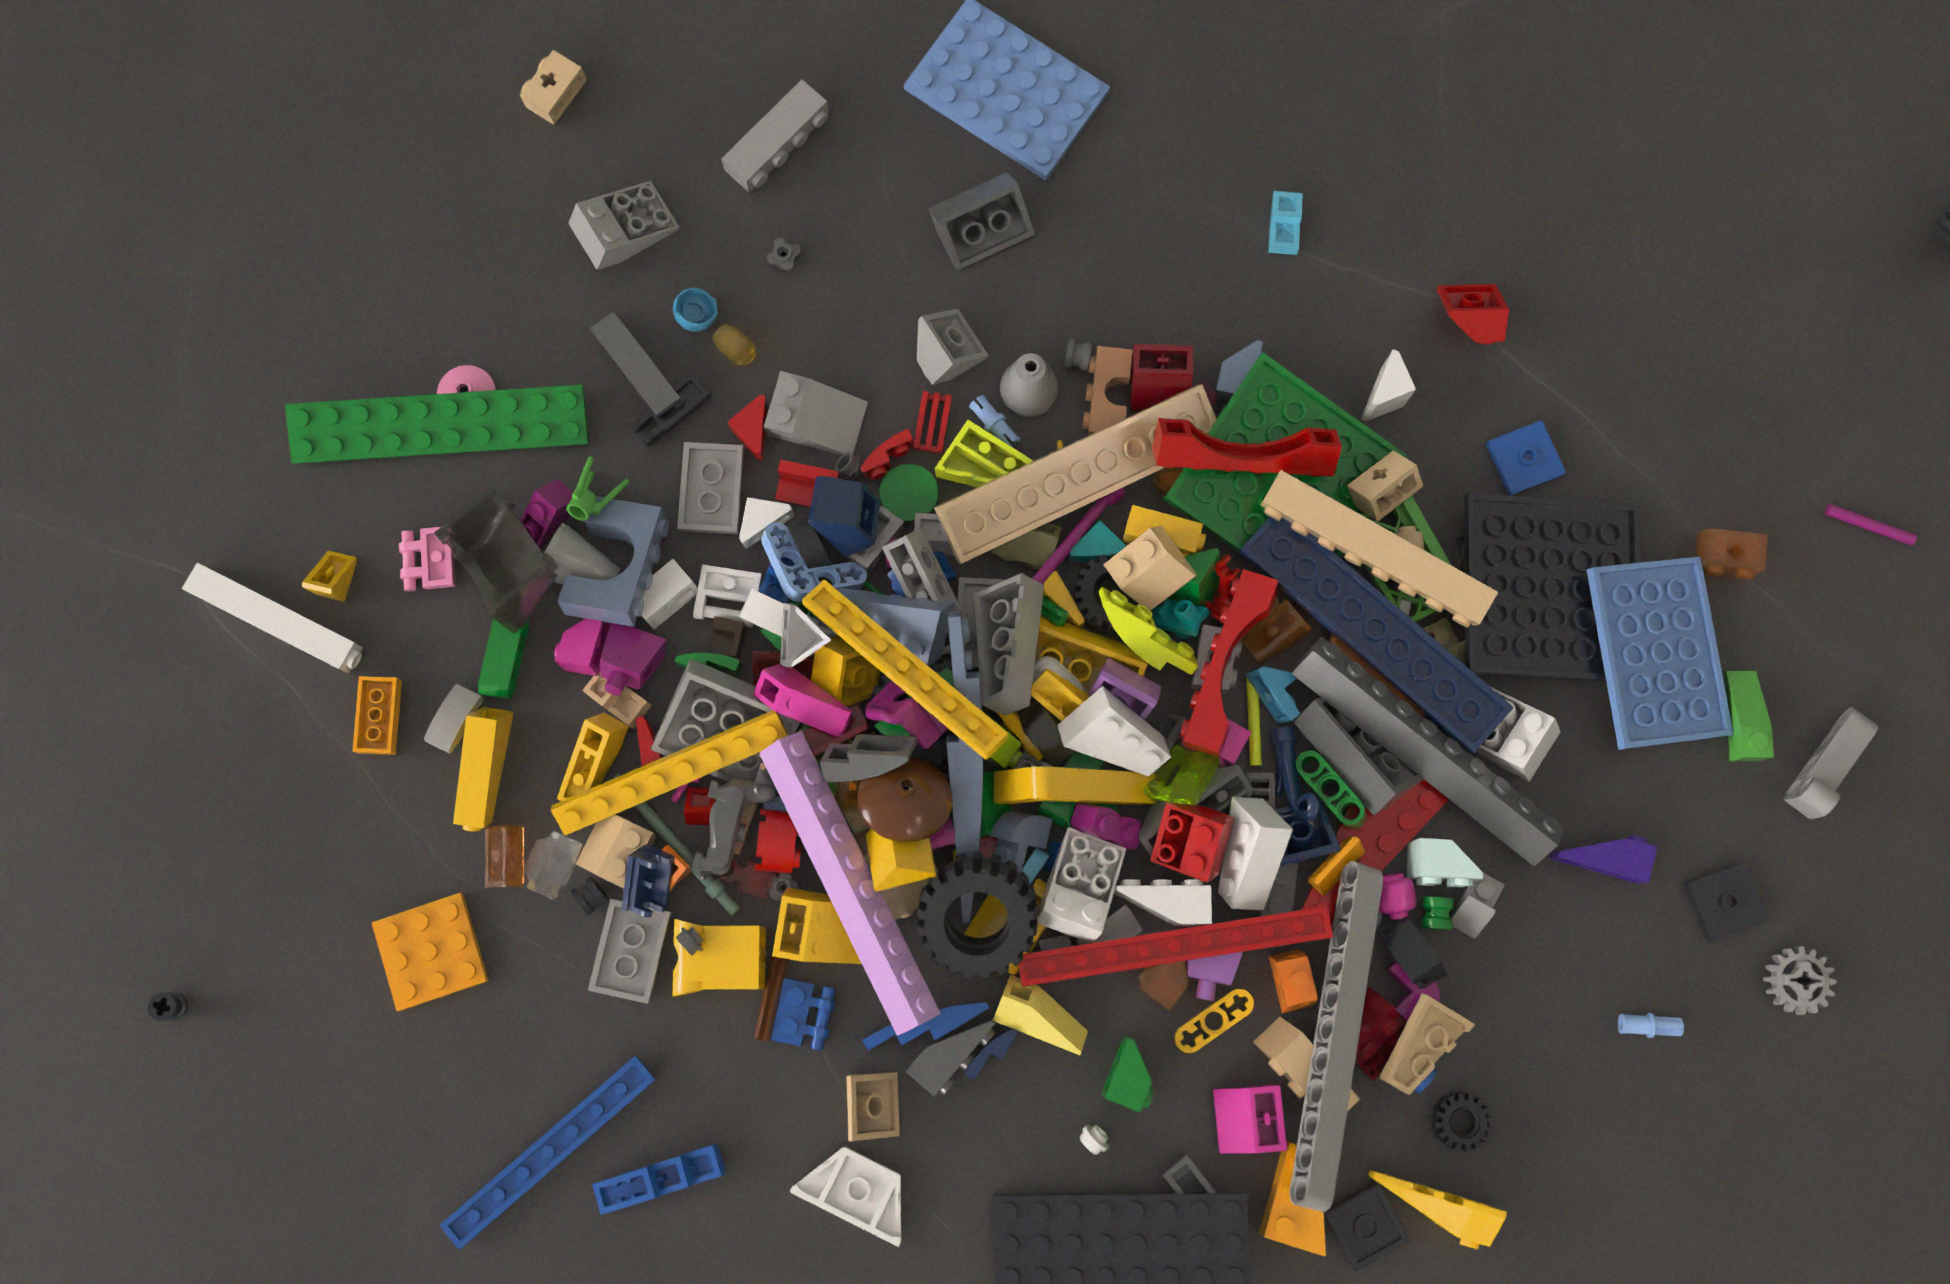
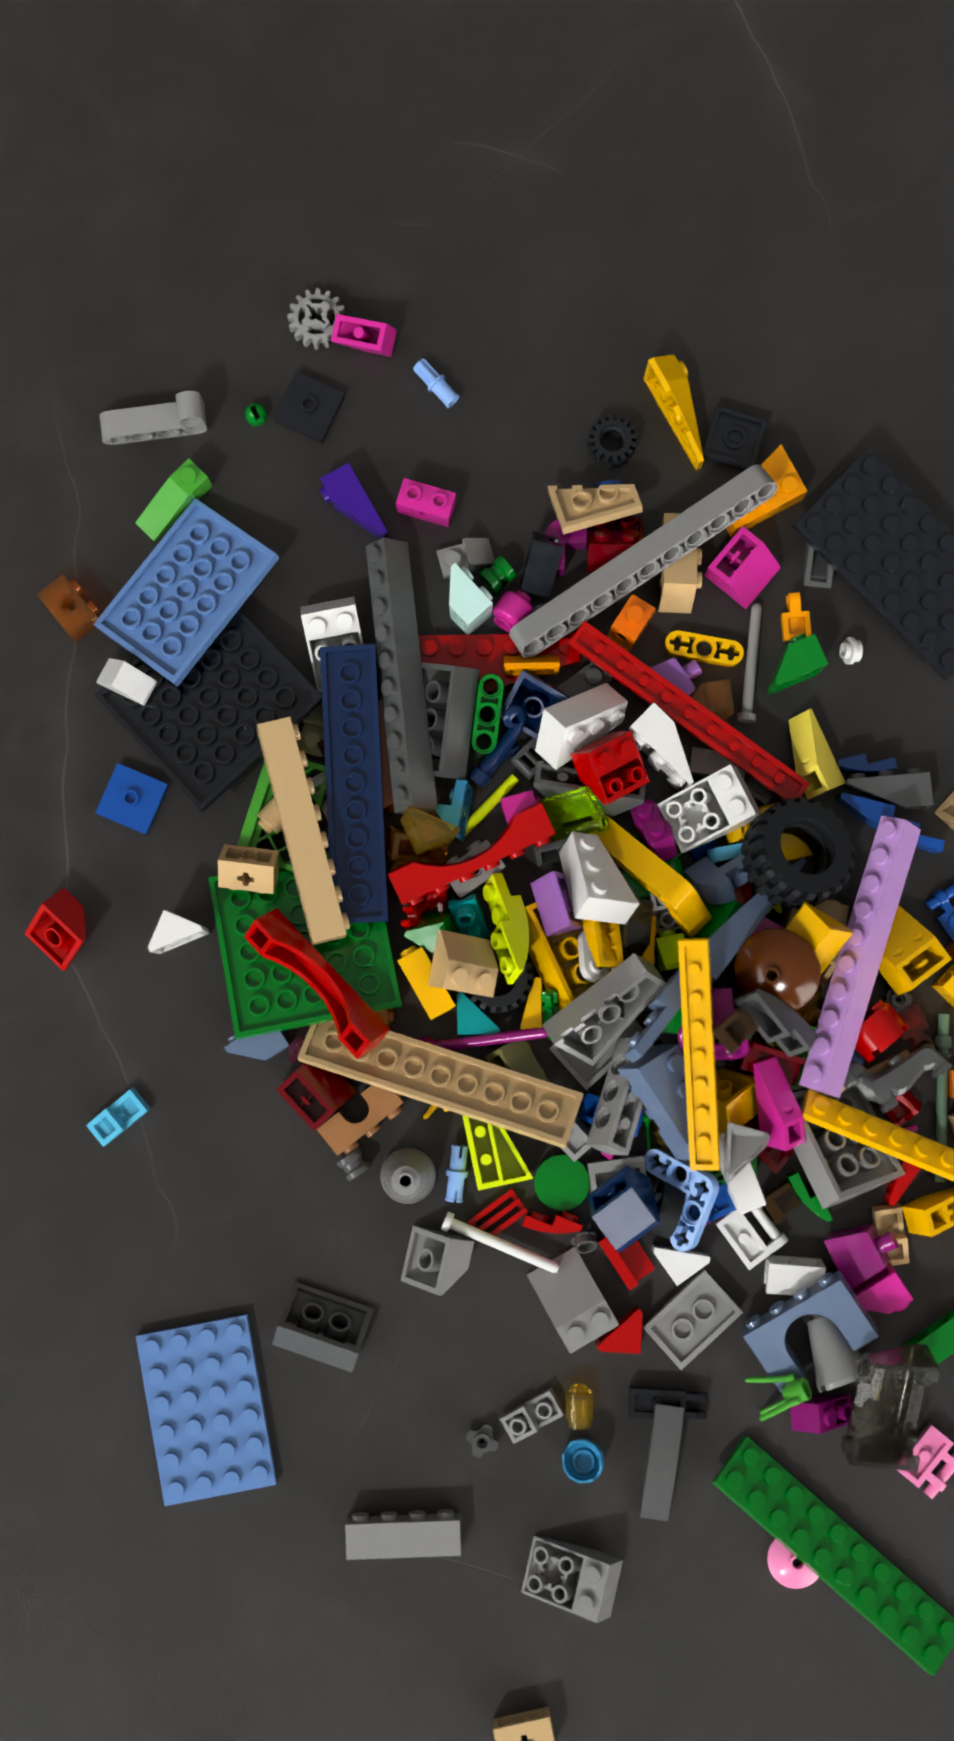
camera: 135 degrees left, 5 degrees up
(763, 307) = (532, 1415): none -> light grey slope
(895, 710) = (735, 1029): none -> dark brown panel
(912, 401) = (498, 1243): none -> white bar
(1162, 1045) = (746, 714): none -> light grey bar
(1162, 1117) = (794, 621): none -> light orange plate
(1282, 644) = (426, 830): none -> clear yellow slope
(1554, 914) = (426, 502): none -> dark pink brick
(1627, 537) = (126, 681): none -> white slope
(1749, 1003) = (364, 335): none -> dark pink slope
(1758, 858) = (250, 417): none -> green hinge

